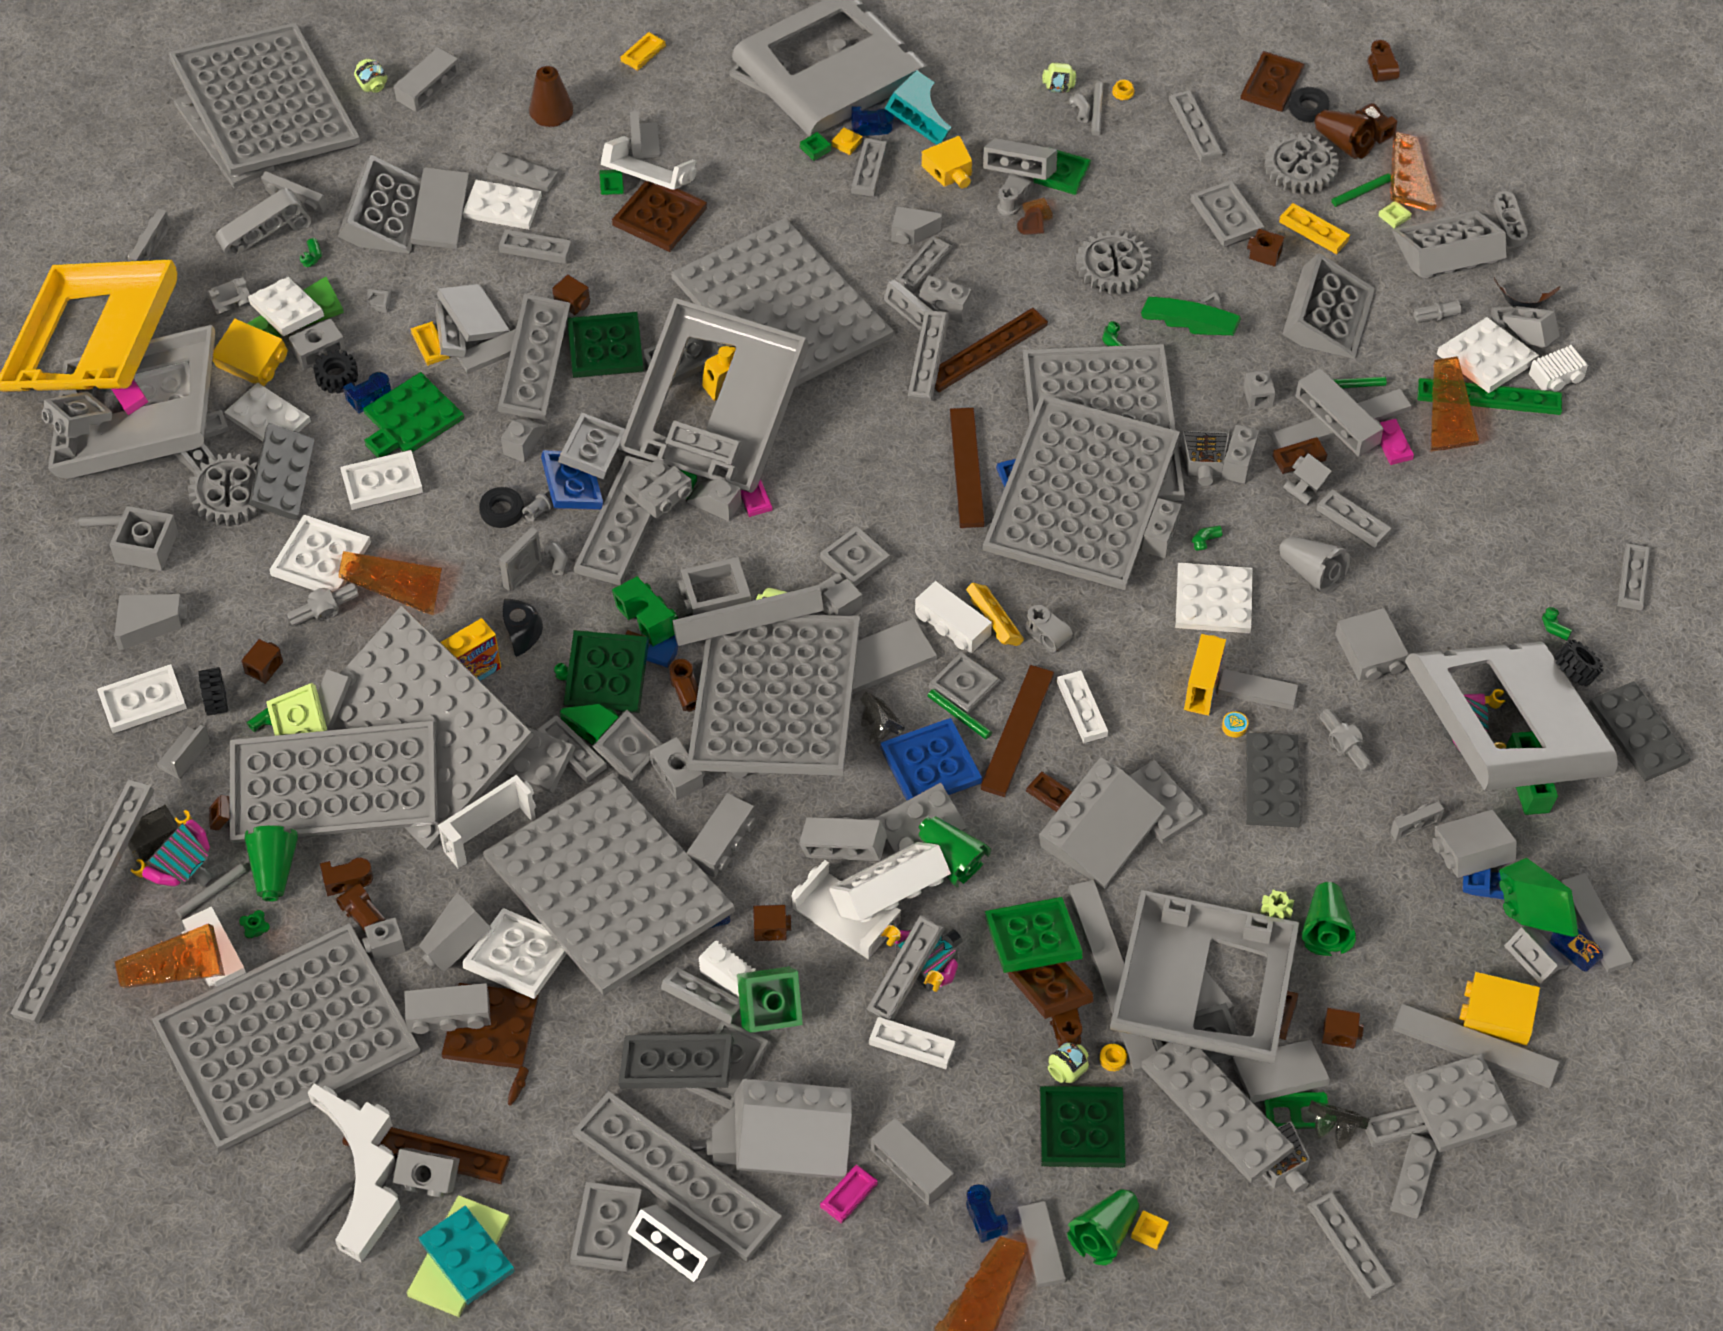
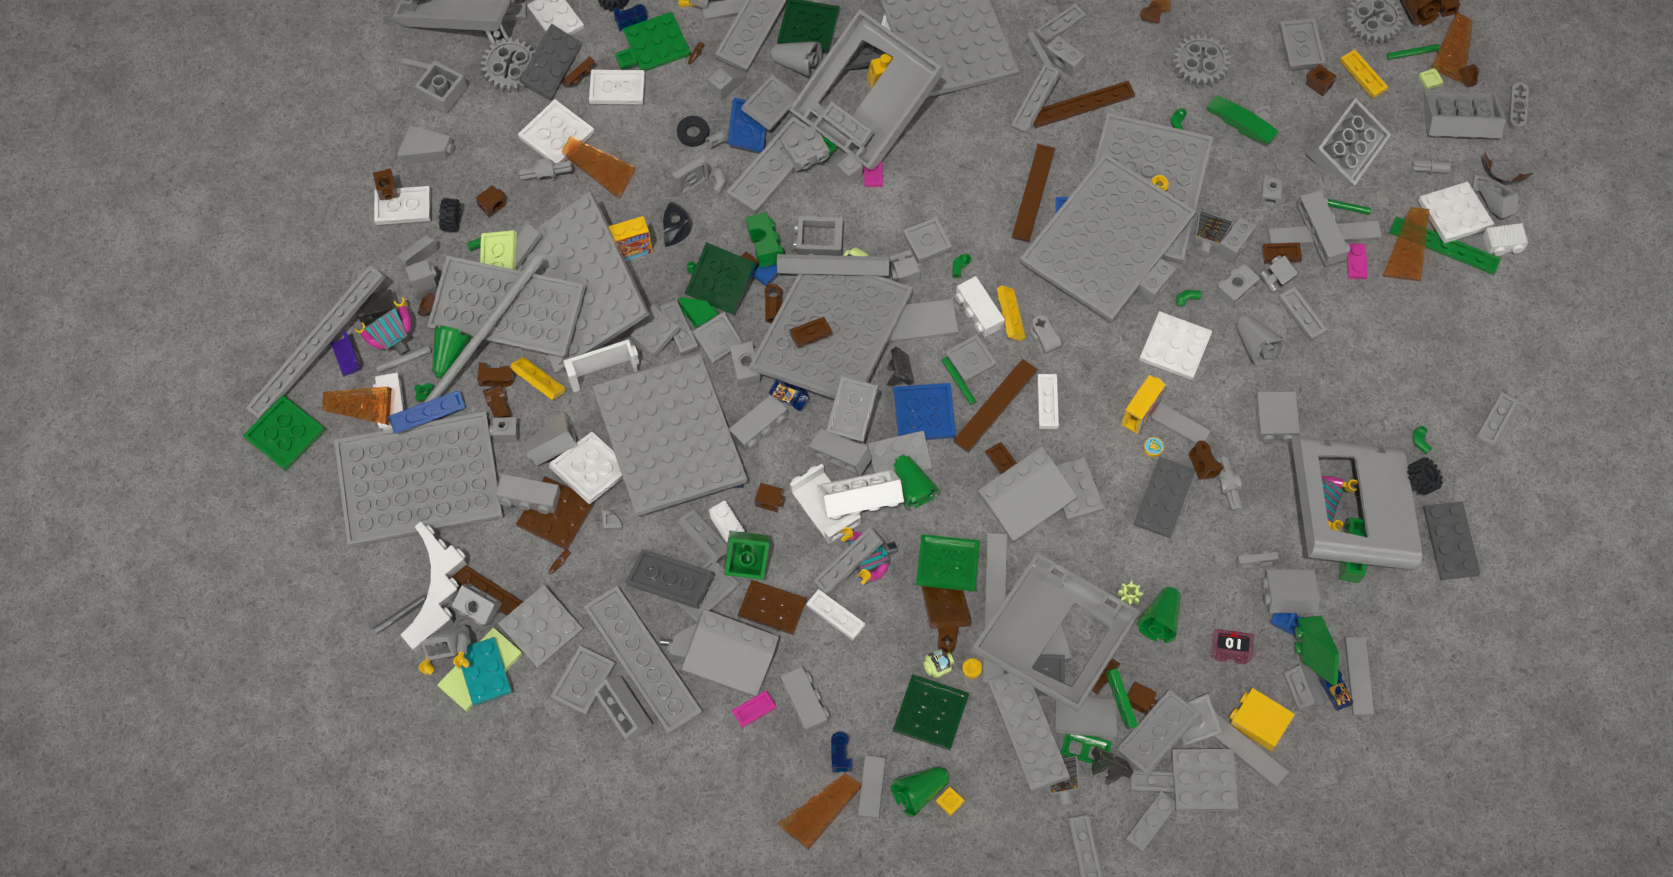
camera: 20 degrees right, 10 degrees up
(76, 1030) = (283, 433): none -> green plate
(111, 676) = (384, 178): none -> reddish brown brick
(130, 906) = (345, 355): none -> dark purple panel
(204, 779) = (422, 278): none -> light grey brick
(263, 944) = (530, 268): none -> light grey piece
(269, 945) = (426, 411): none -> blue tile
(319, 483) = (583, 68): none -> reddish brown plate
(402, 1233) = (444, 644): none -> light grey torso
(405, 863) = (537, 378): none -> yellow plate
(470, 412) = (697, 51): none -> reddish brown helmet
(523, 1174) = (540, 626): none -> light grey plate
(568, 1014) = (610, 521): none -> light grey tile
(607, 382) = (798, 56): none -> light grey cone
(750, 787) = (789, 394): none -> clear blue leg
(752, 701) = (810, 332): none -> reddish brown plate
(825, 1059) = (772, 607): none -> reddish brown tile
(842, 778) = (852, 408): none -> light grey tile
(906, 574) = (959, 263): none -> green arm
(1121, 409) = (1160, 179): none -> yellow plate
(1262, 507) = (1244, 278): none -> light grey brick
(1305, 721) = (1204, 461): none -> reddish brown leg
(1318, 1033) = (1121, 698): none -> green tile
(1380, 1061) = (1158, 732): none -> light grey tile
(1421, 1033) = (1206, 725): none -> light grey tile
(1428, 931) = (1232, 646): none -> clear pink brick
(1440, 197) = (1470, 75): none -> reddish brown tile

